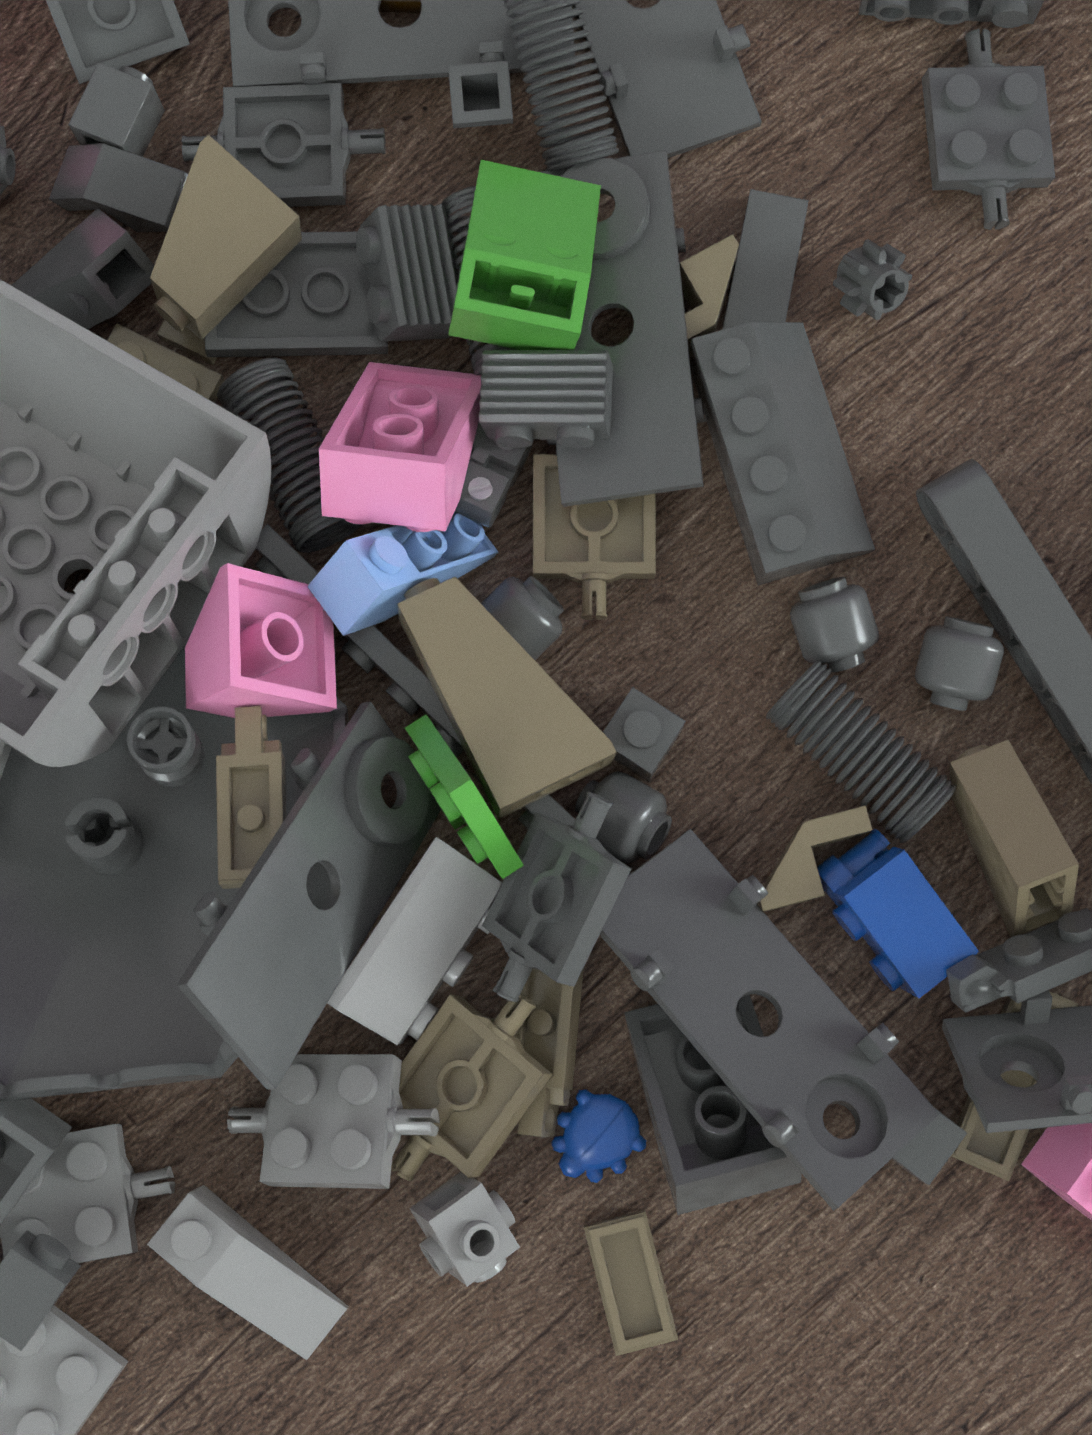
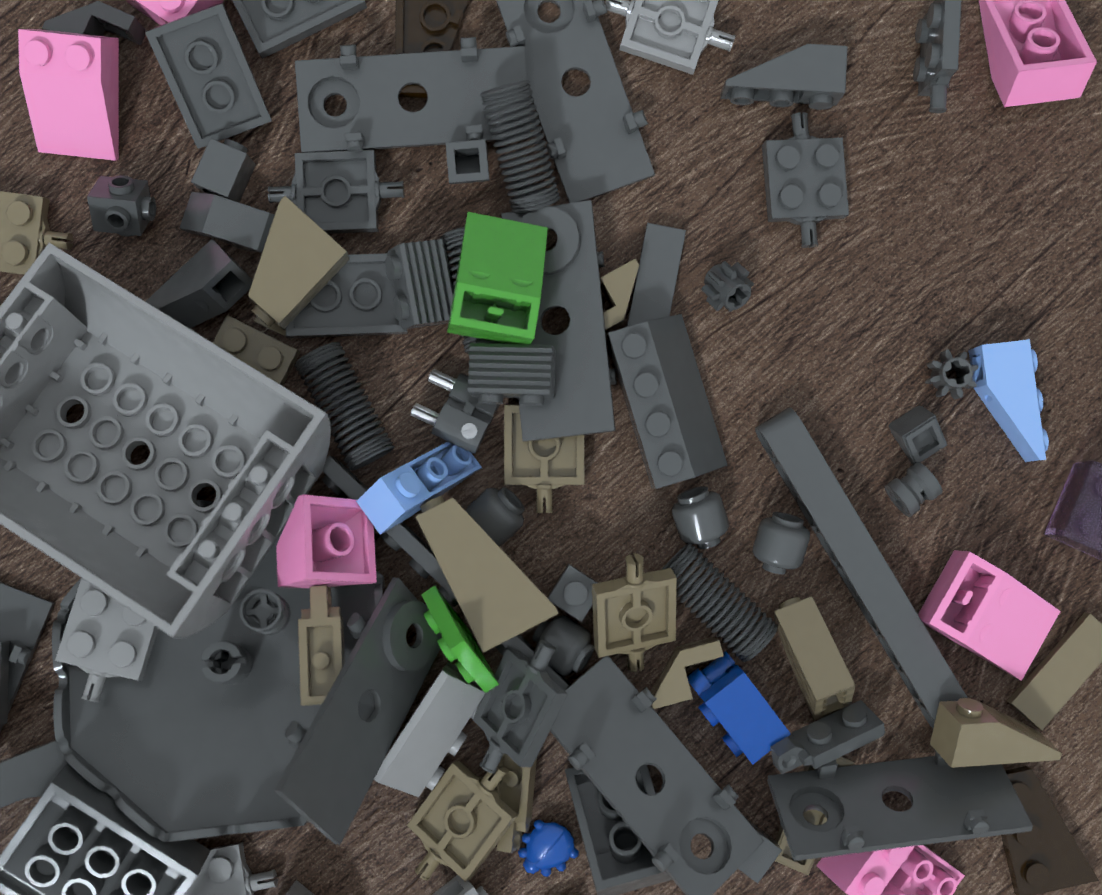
camera: 10 degrees left, 5 degrees up
(333, 1122) = (381, 846): light grey plate -> none
(400, 447) = (417, 405): bright pink slope -> none
(733, 760) = (634, 612): none -> dark tan plate

